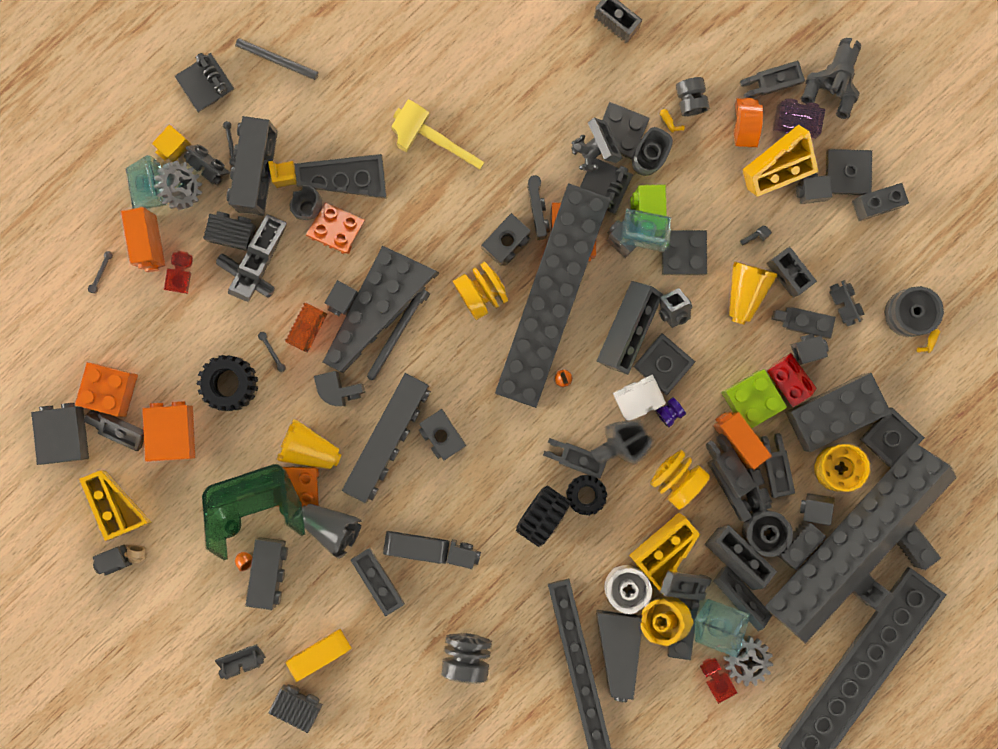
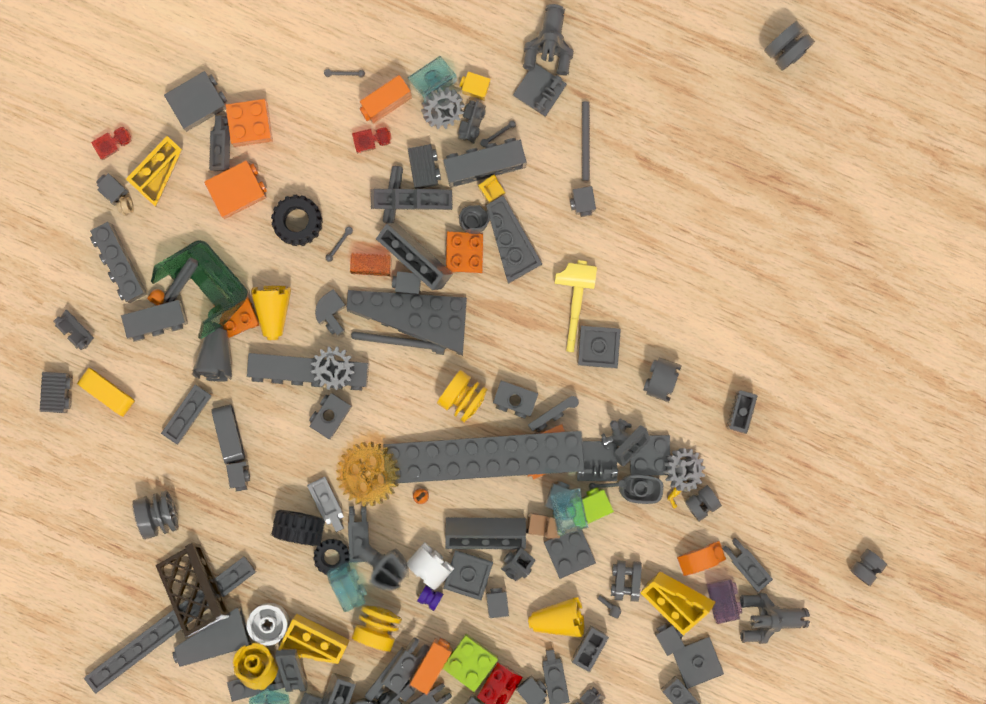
camera: 60 degrees right, 0 degrees up
(65, 546) = (106, 145): none -> clear red plate
(159, 49) = (550, 42): none -> dark grey wheel
(190, 585) = (118, 262): none -> dark grey brick
(235, 527) = (181, 280): none -> dark grey axle
(316, 278) = (414, 256): none -> dark grey brick
(336, 86) = (583, 201): none -> dark grey brick
(396, 399) = (324, 369): none -> light grey gear
(490, 133) = (599, 347): none -> dark grey plate
(517, 402) = (383, 466): none -> clear yellow gear
(529, 476) = (326, 503): none -> light grey hinge
(551, 82) = (662, 380): none -> dark grey brick
(559, 634) = (208, 585): none -> dark brown fence
(624, 492) = (346, 587): none -> clear light blue brick
(638, 167) = (622, 484): none -> dark grey hinge
(646, 266) = (541, 525): none -> medium nougat brick
(651, 100) = (685, 469): none -> light grey gear
(706, 346) = (497, 603): none -> dark grey brick
(742, 218) = (618, 589): none -> dark grey brick

